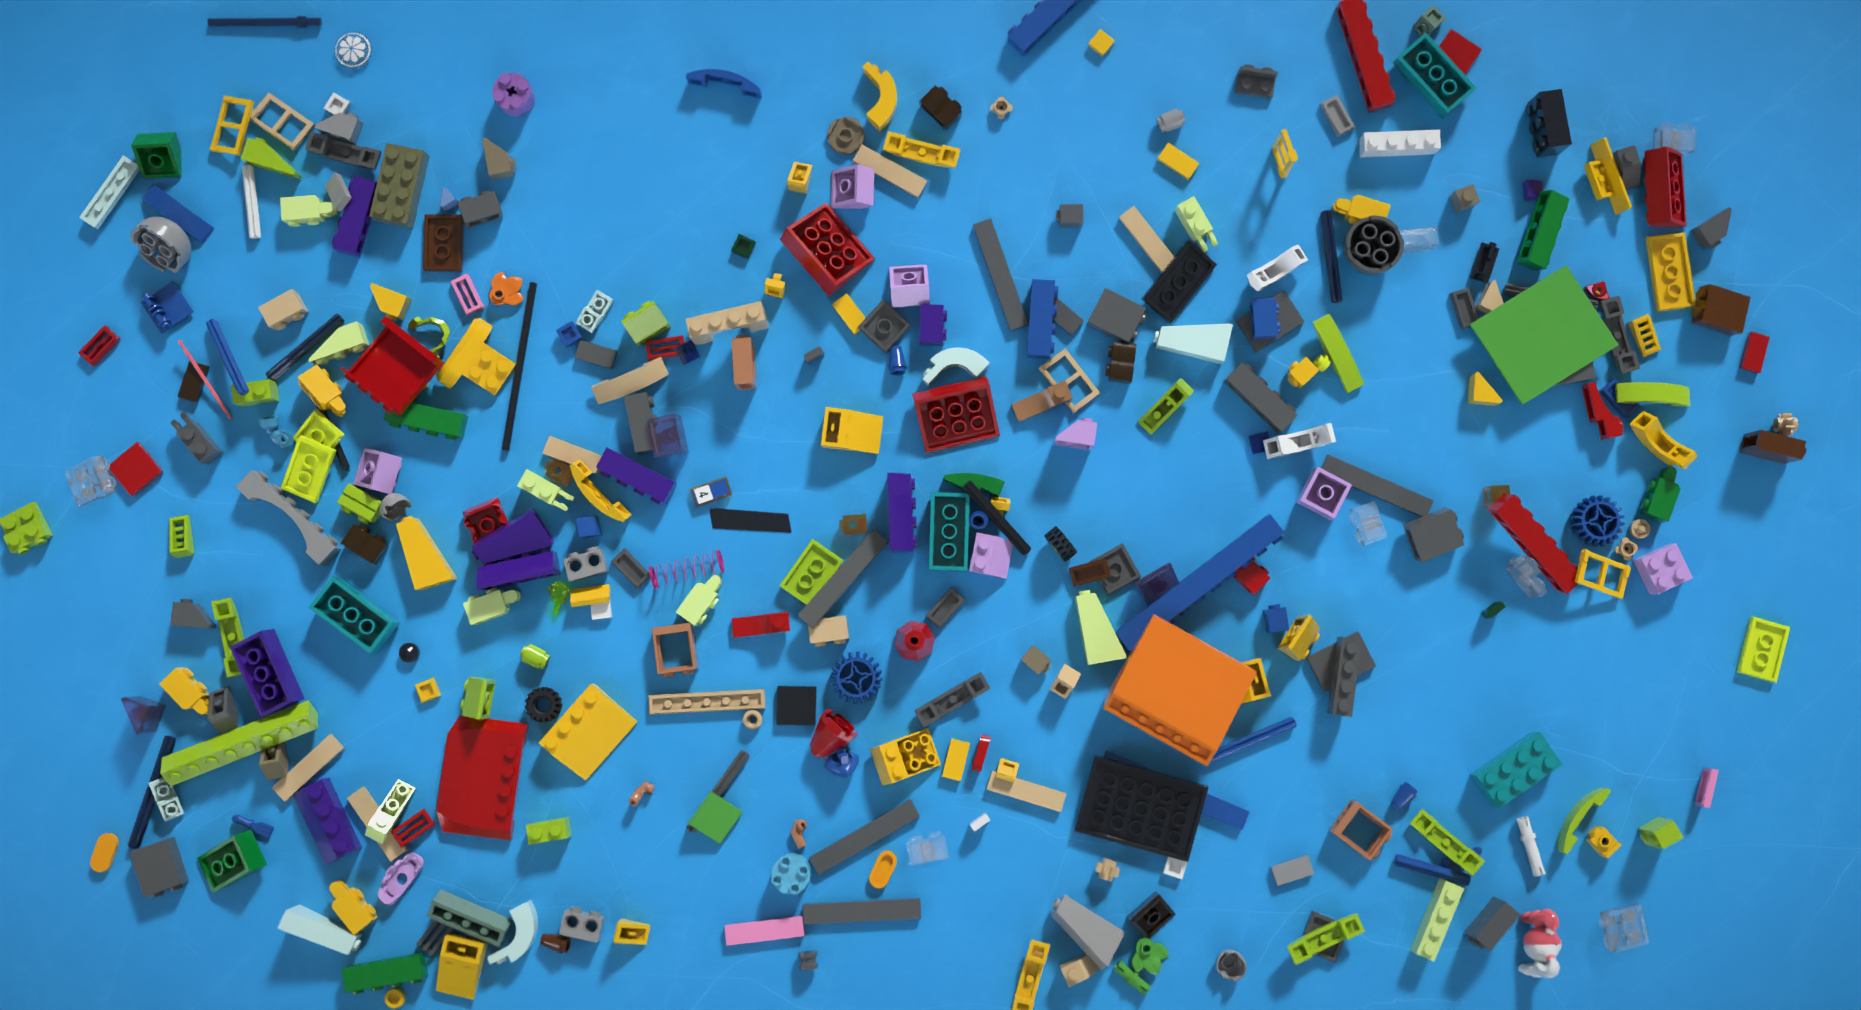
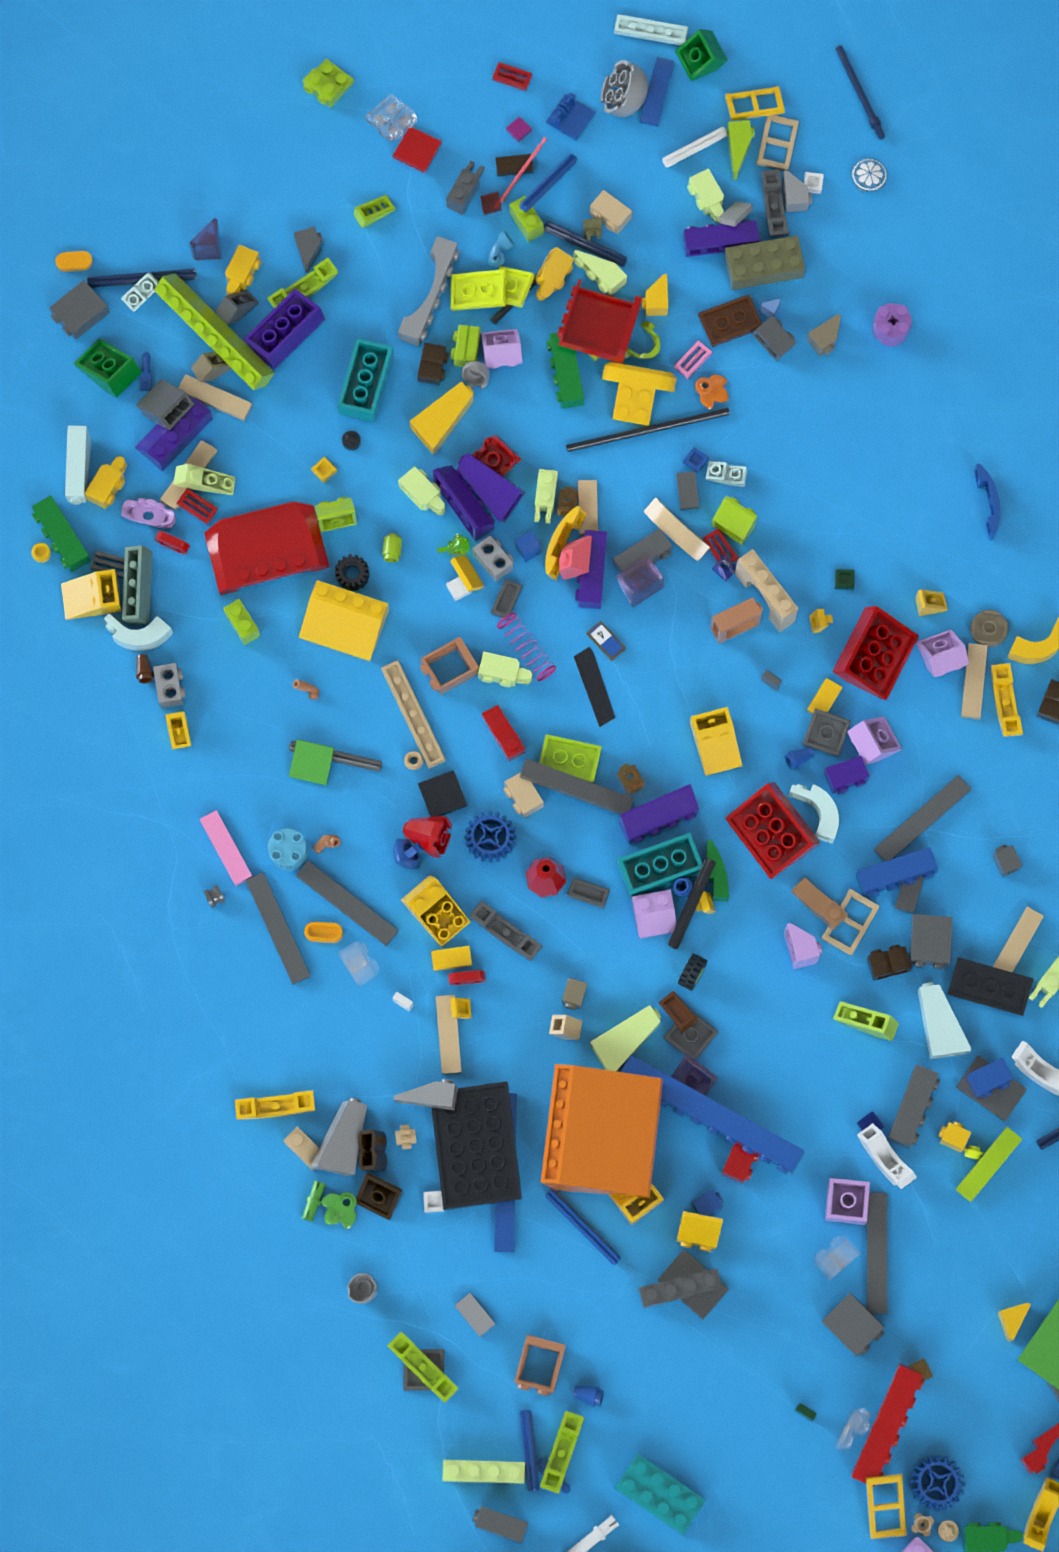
camera: 70 degrees right, 10 degrees down
(157, 362) = (518, 129): none -> magenta tile
(223, 420) = (491, 203): none -> clear red tile
(292, 333) = (592, 227): none -> olive tile
(295, 821) = (165, 404): none -> dark grey brick
(439, 866) = (172, 542): none -> red beam
(619, 487) = (575, 558): none -> coral slope
(1083, 826) = (434, 1095): none -> light grey slope
(1110, 906) = (372, 1153): none -> brick

